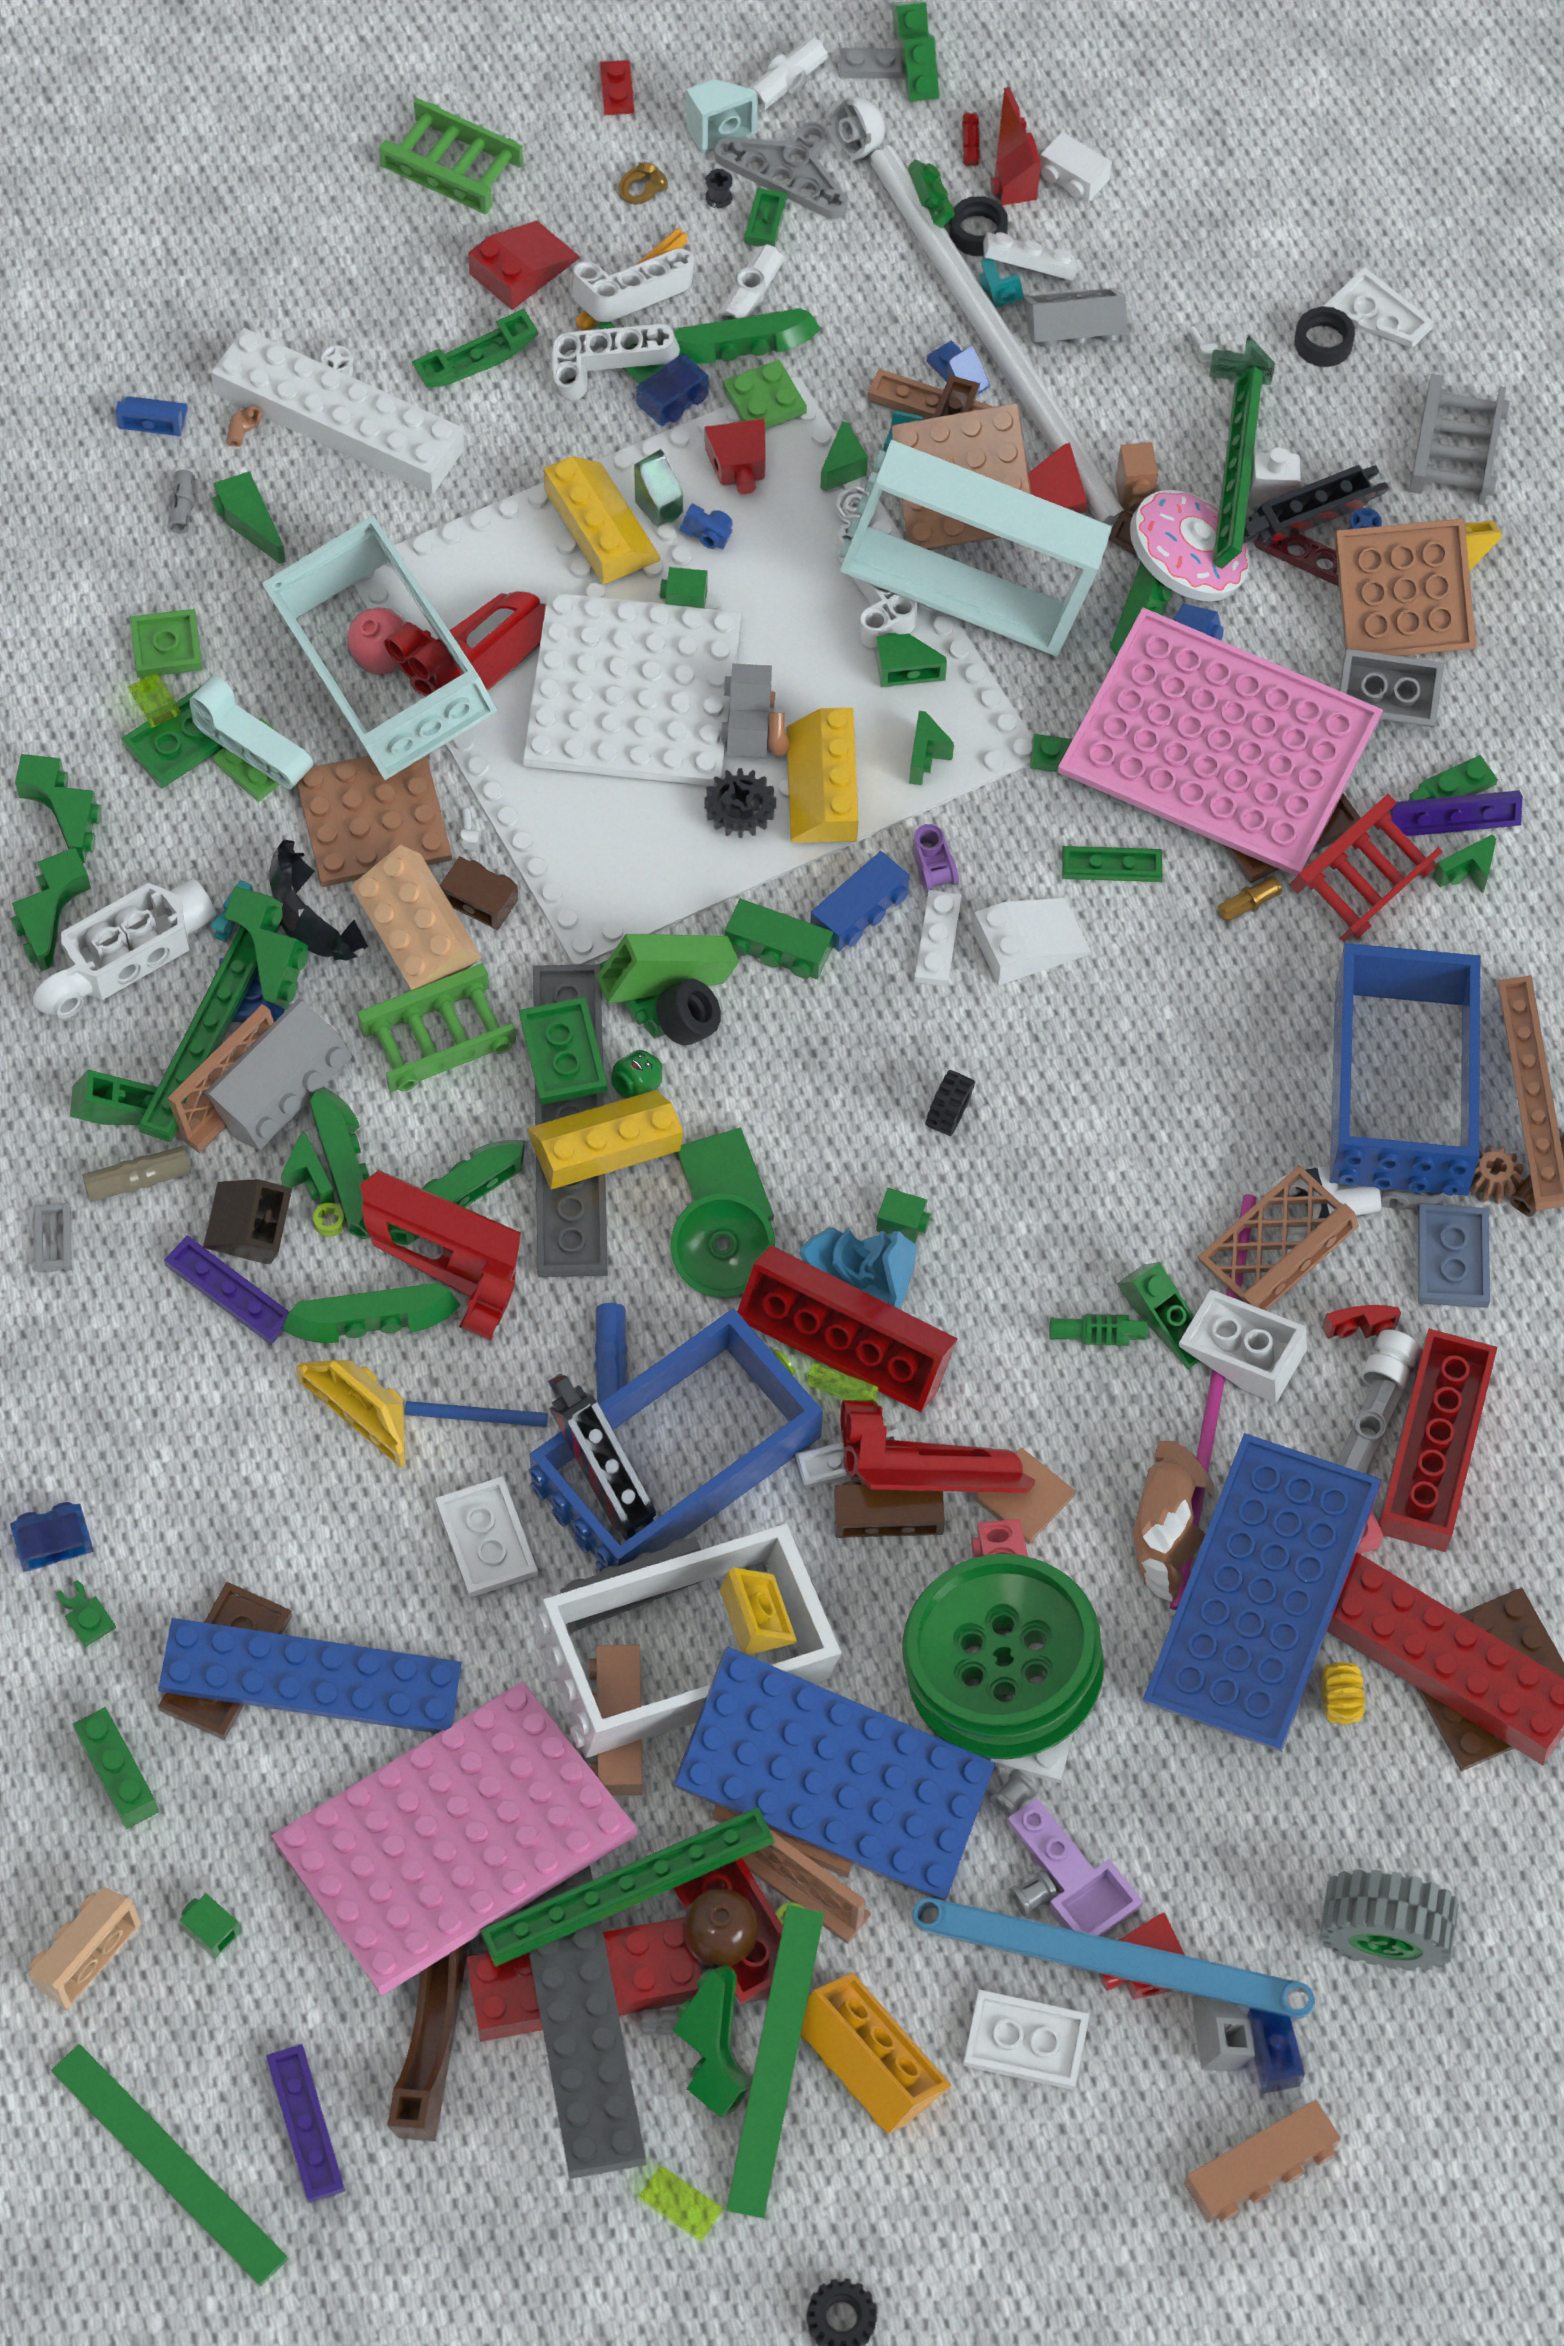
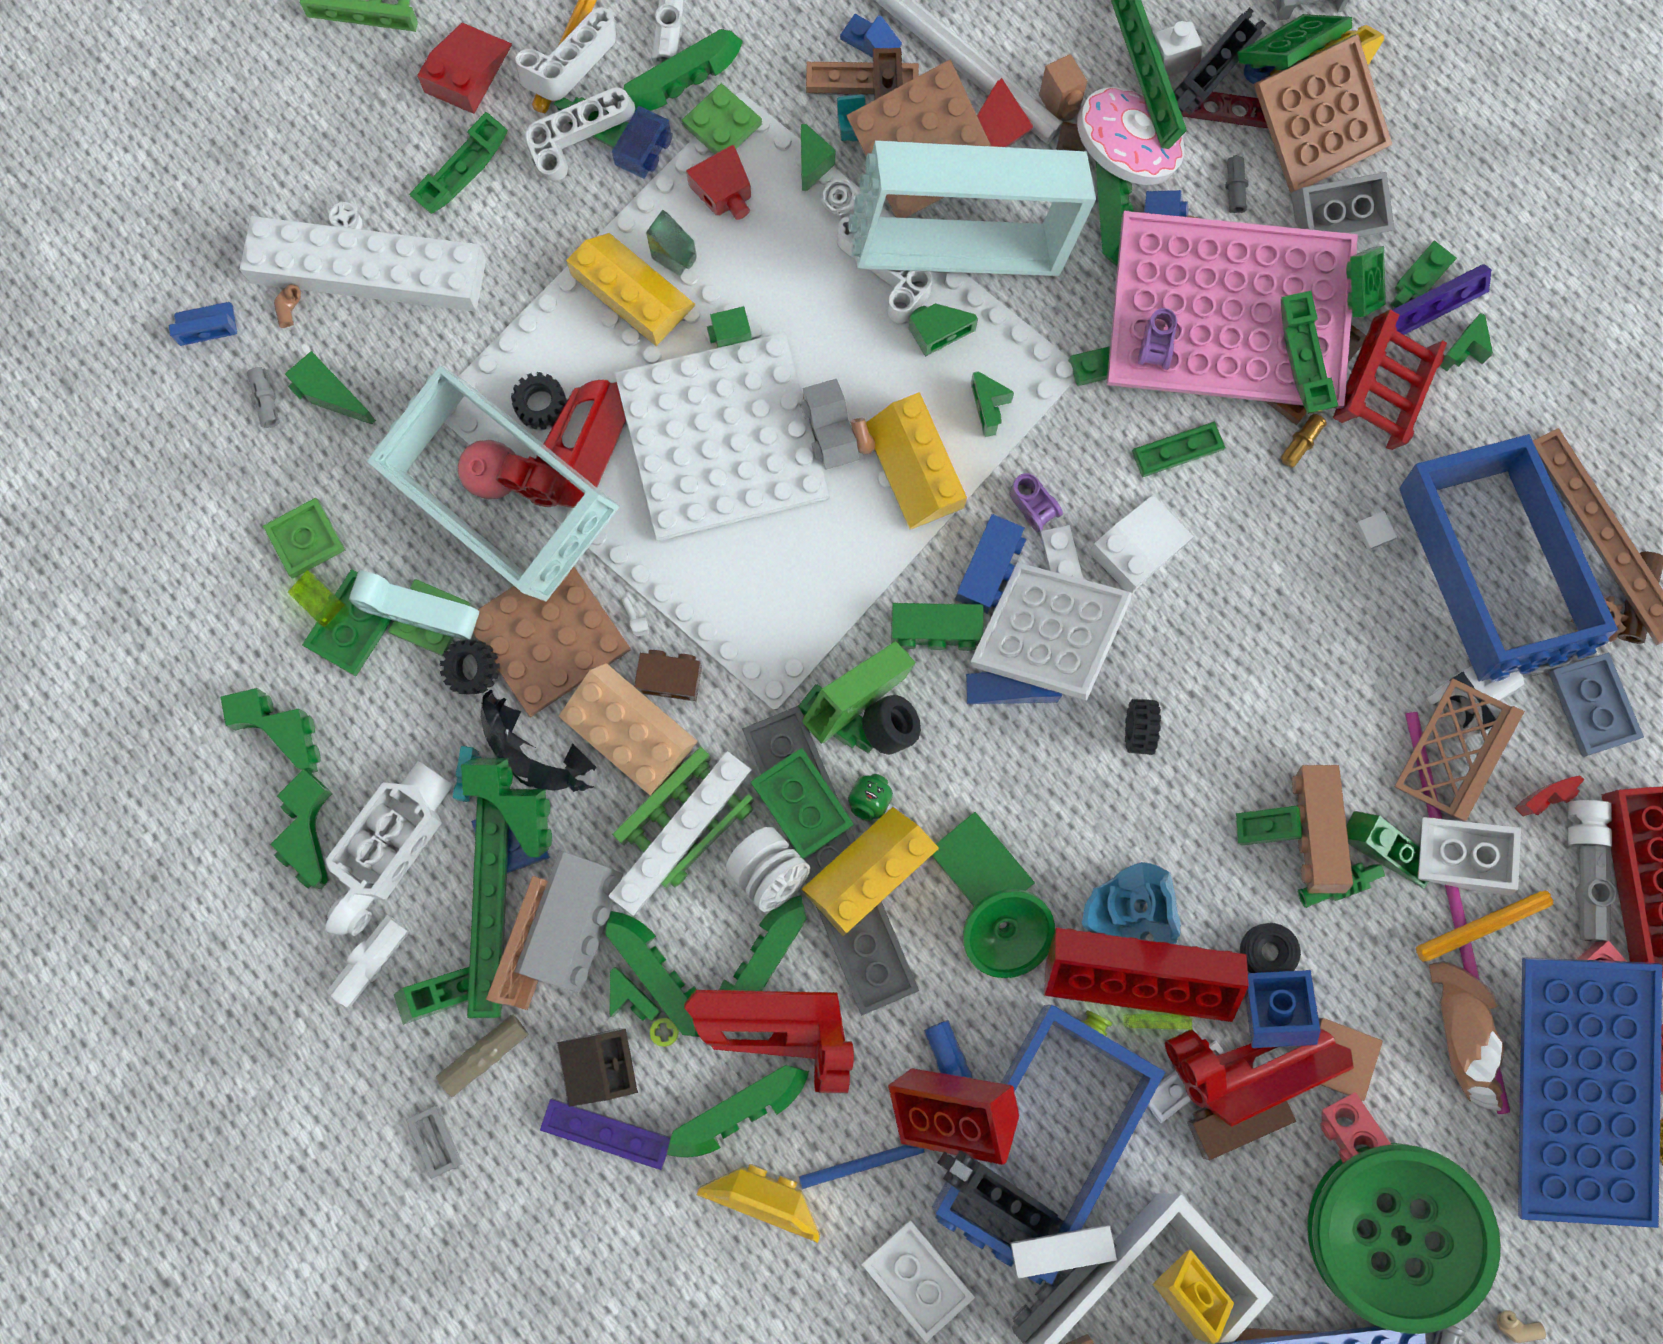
camera: 20 degrees left, 15 degrees up
(60, 1048) = (367, 961): none -> white piece
(269, 803) = (485, 667): none -> black tyre
(426, 1034) = (680, 834): none -> white plate
(453, 579) = (533, 385): none -> black tyre
(500, 1094) = (767, 869): none -> white wheel
(605, 1369) = (955, 1114): none -> red slope
(642, 1529) = (1063, 1251): none -> white tile
(711, 529) = (726, 262): blue plate -> none
(741, 793) = (847, 520): black gear -> none
(837, 1025) = (997, 689): none -> blue slope
(891, 974) = (1051, 630): none -> white plate
(903, 1214) = (1142, 843): green brick -> none
(975, 1411) = (1282, 1009): none -> blue brick
(996, 1346) = (1283, 938): none -> black tyre
(1043, 1242) = (1269, 825): none -> green plate
(1095, 1815) = (1517, 1330): none -> tan arm
(1097, 1262) = (1323, 829): none -> nougat brick
(1122, 743) = (1158, 345): none -> medium lavender piece
(1233, 1419) = (1484, 926): none -> light orange axle
(1277, 801) = (1305, 353): none -> green slope
(1288, 632) = (1236, 184): none -> dark grey axle
(1290, 1011) = (1376, 530): none -> white tile
(1375, 758) = (1367, 281): none -> green plate
(1402, 509) = (1295, 41): none -> green plate

